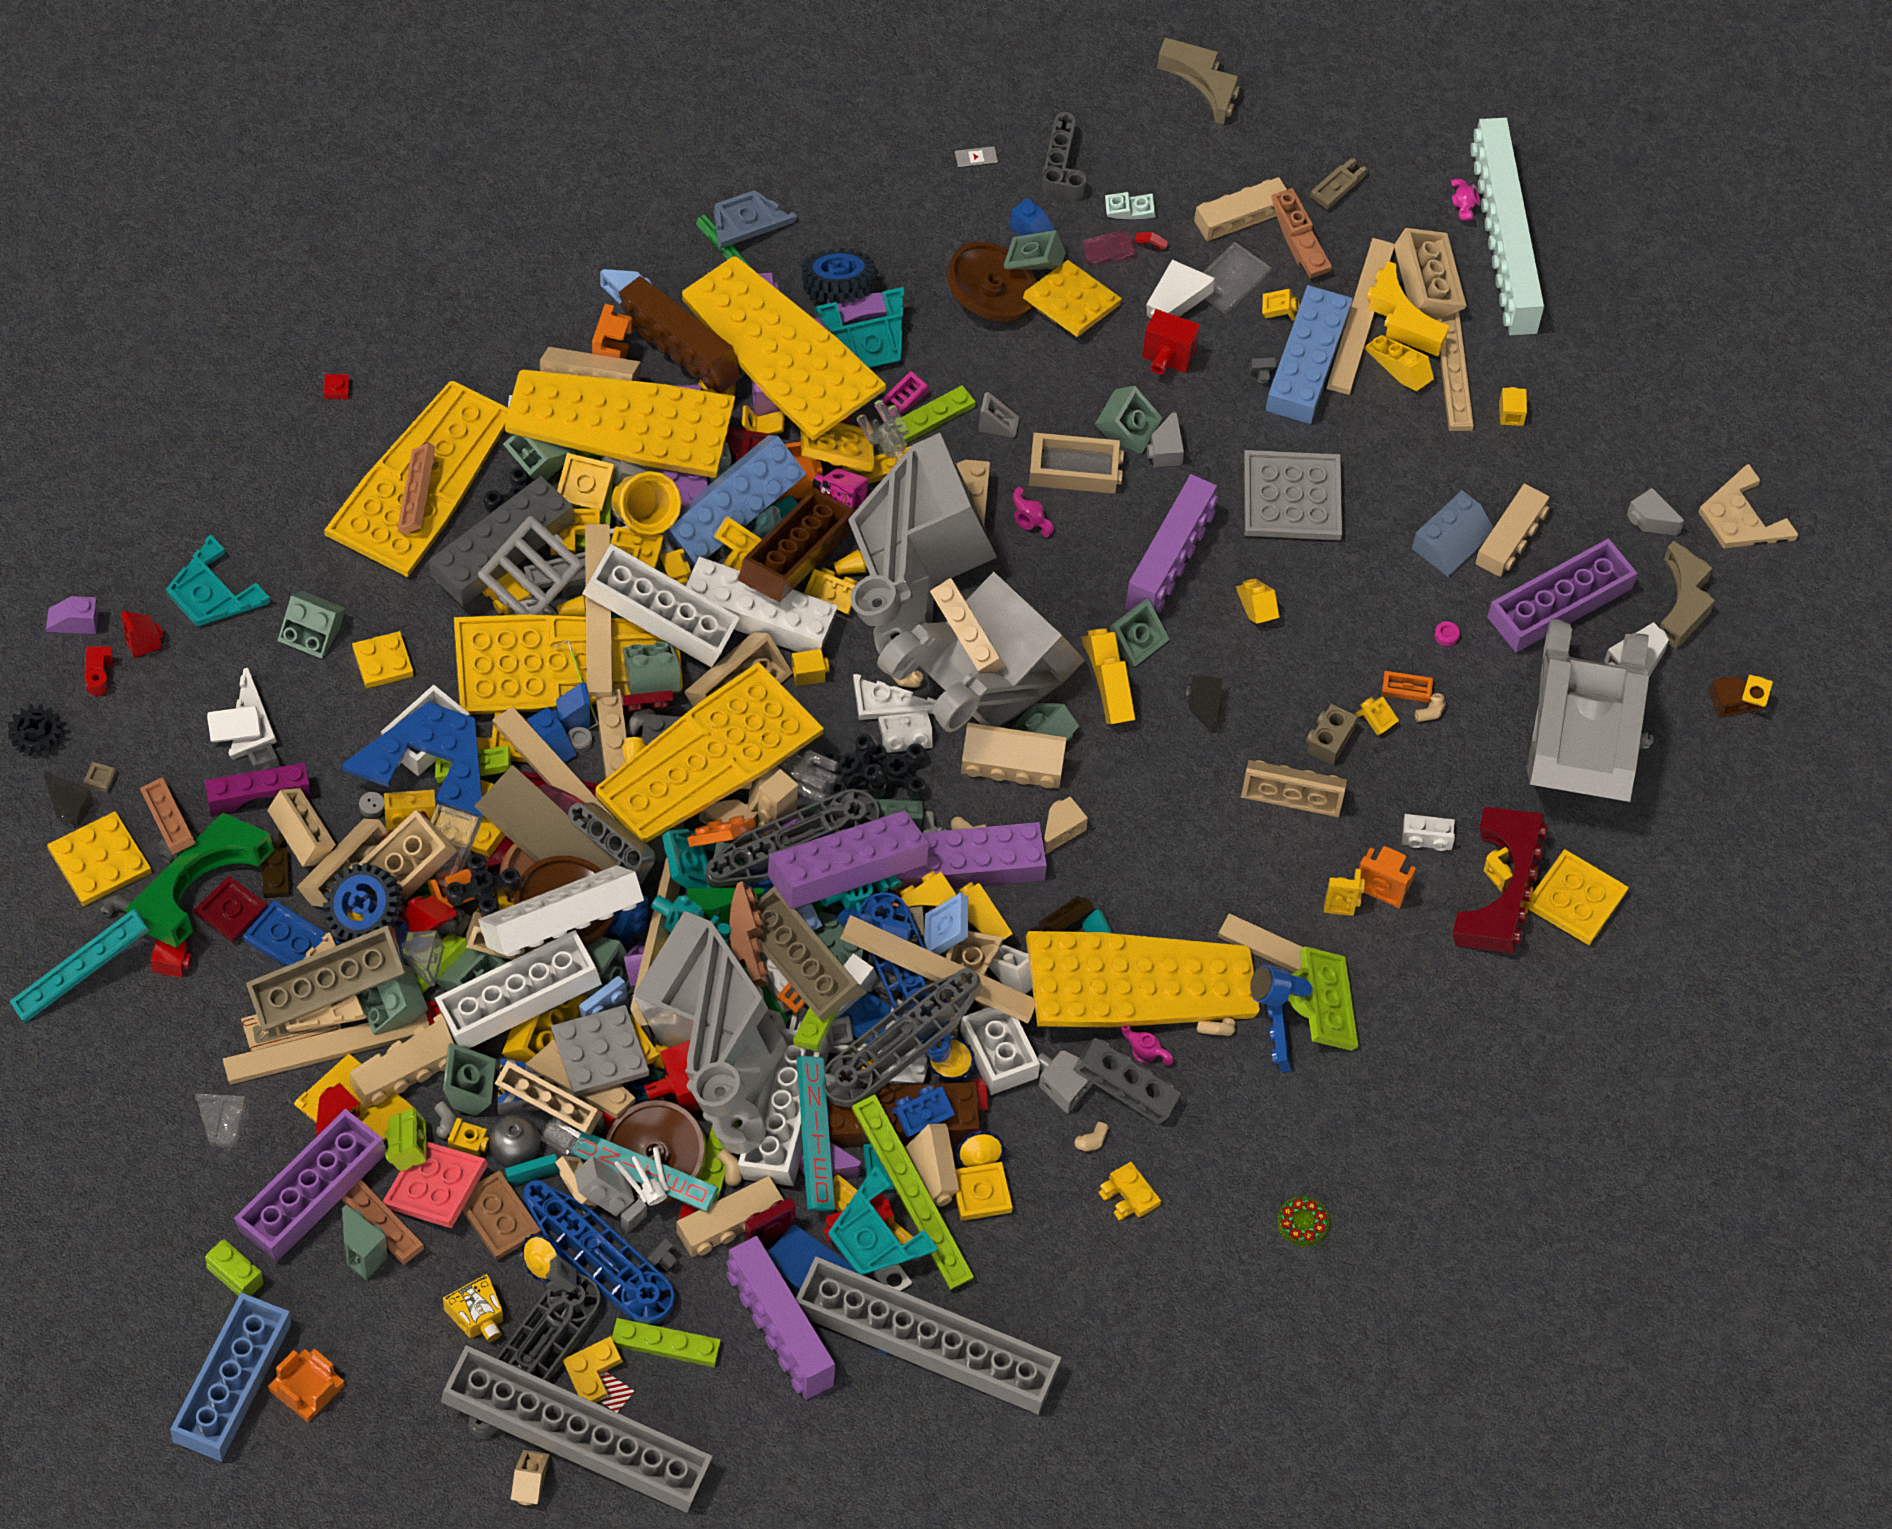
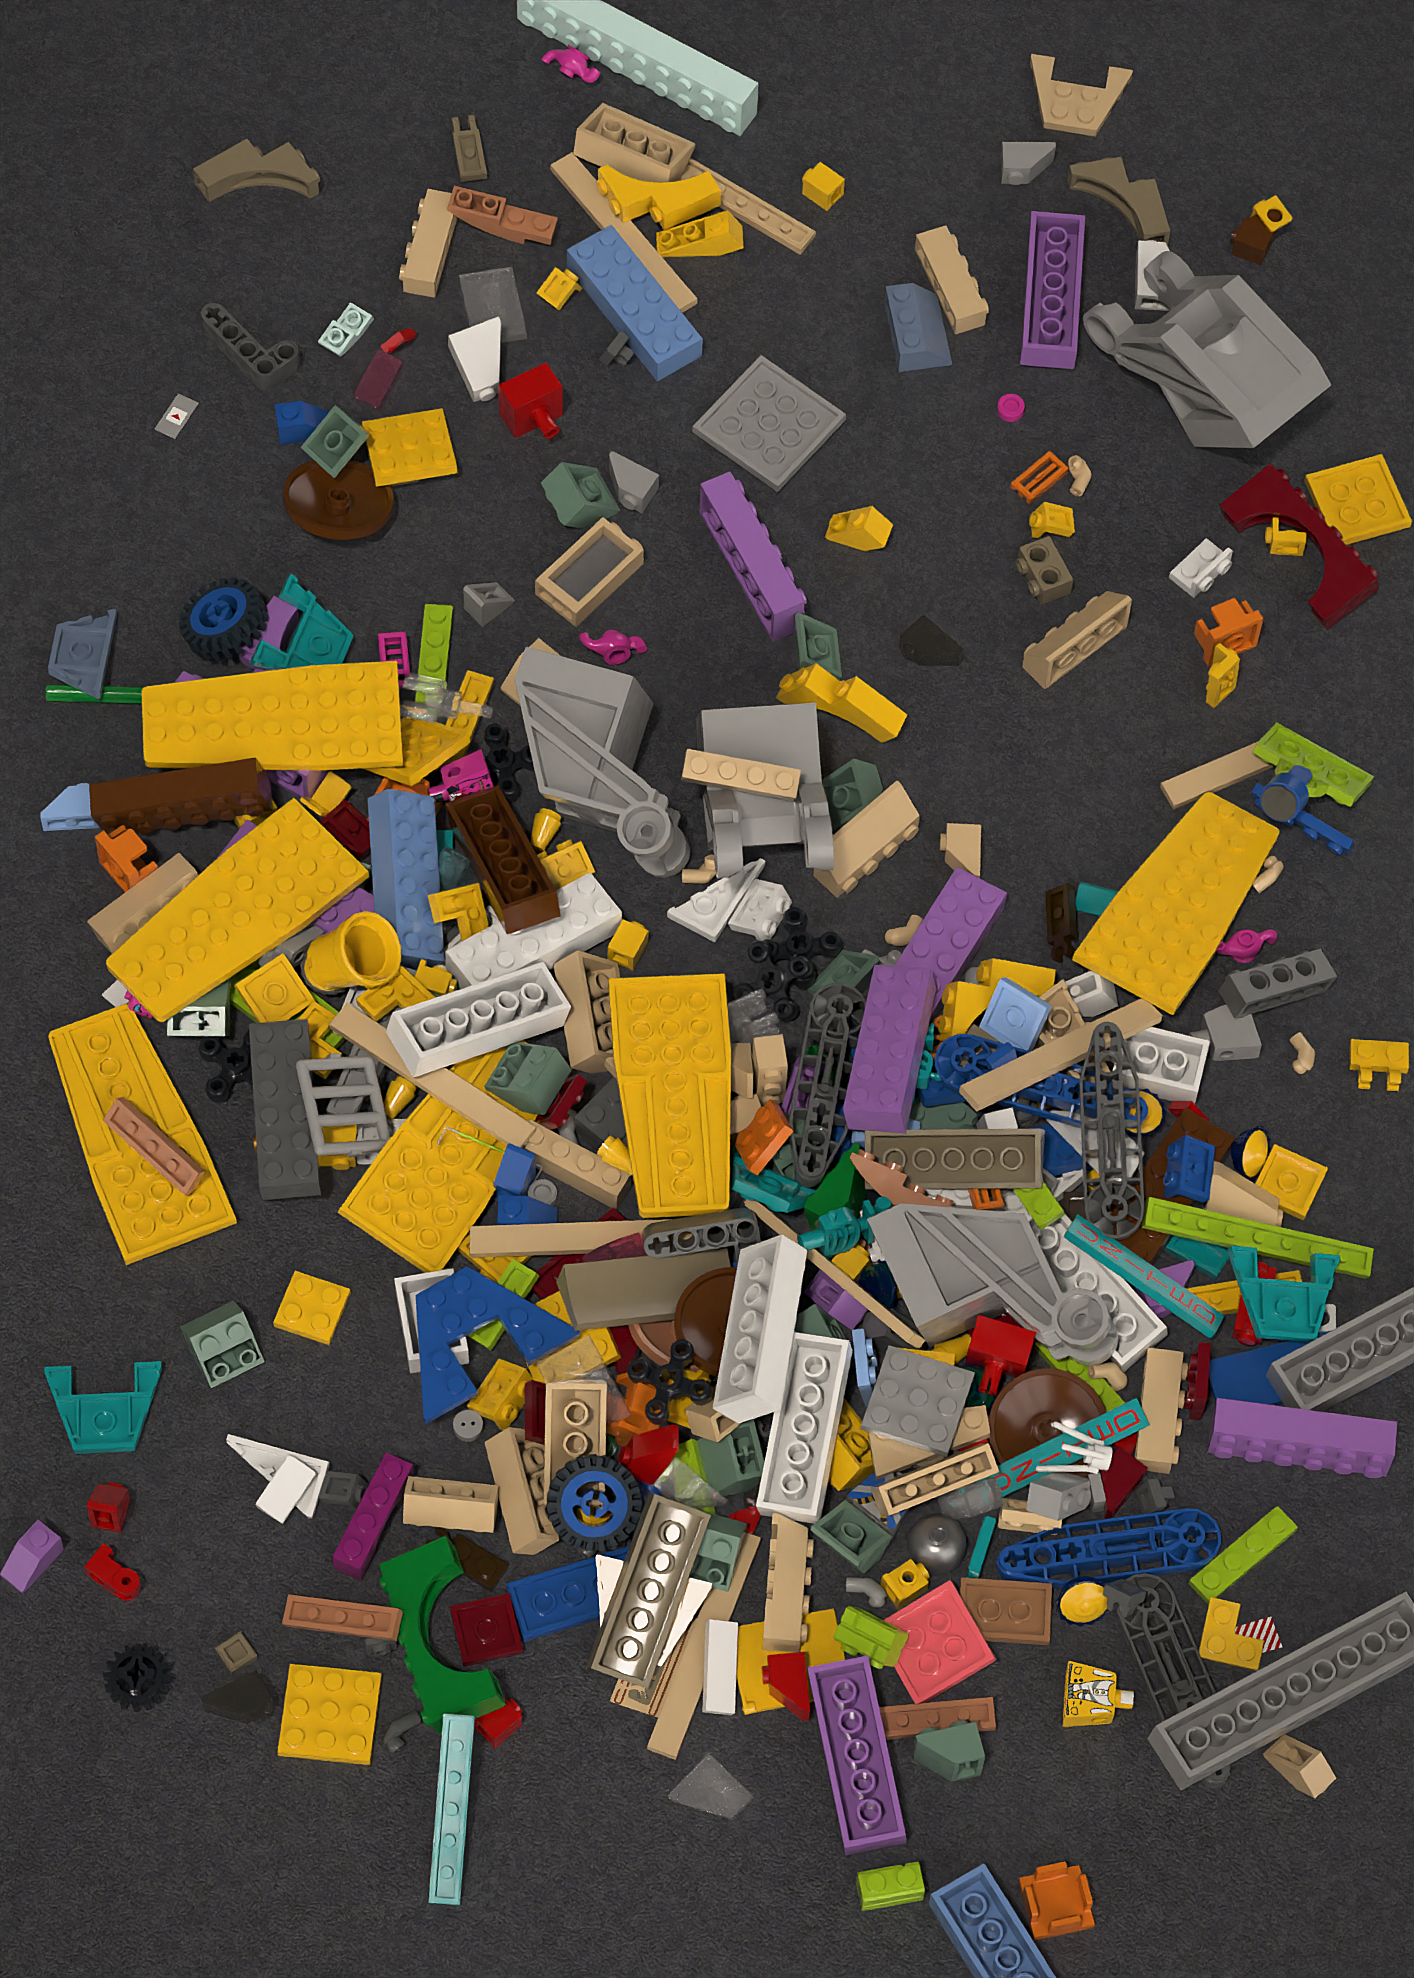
camera: 50 degrees left, 5 degrees up
(314, 1065) = (720, 1667): none -> white tile
(653, 1224) = (1120, 1480): none -> dark red slope

